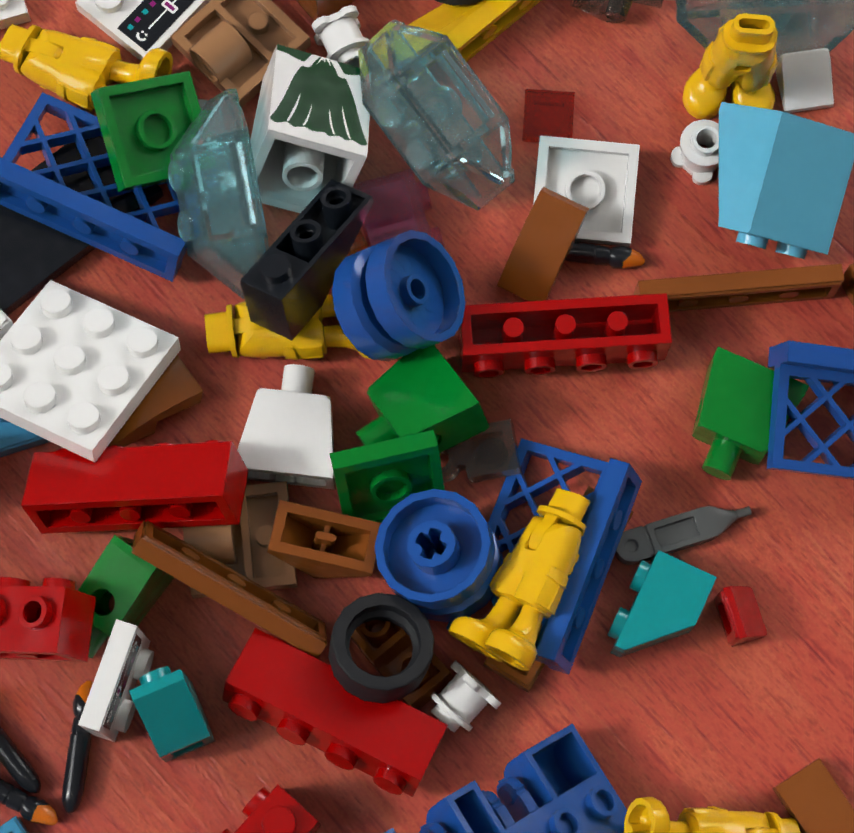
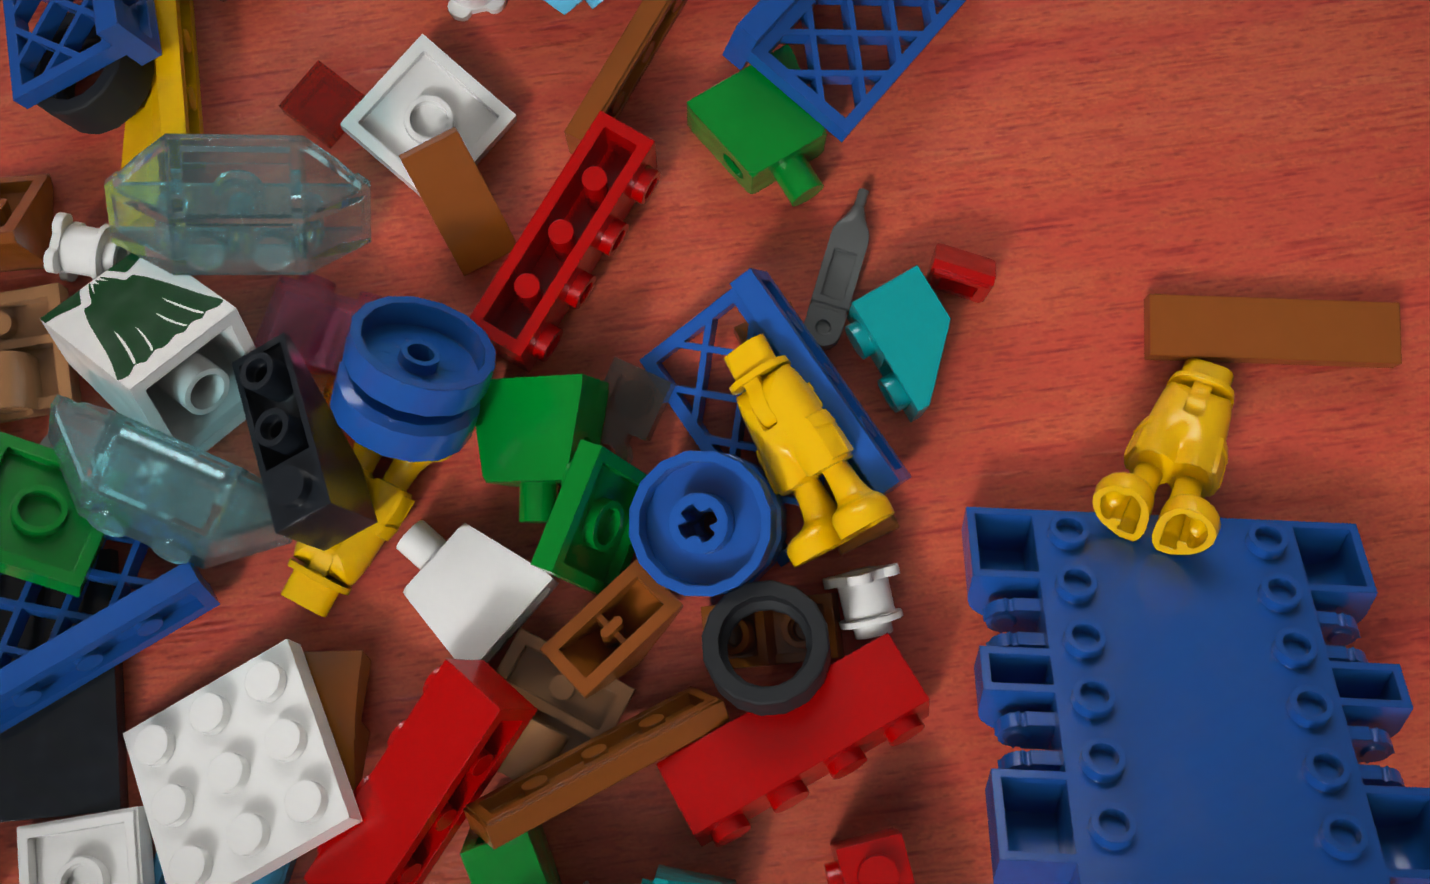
camera: 55 degrees left, 5 degrees up
(616, 257) = (519, 140): black piece -> none

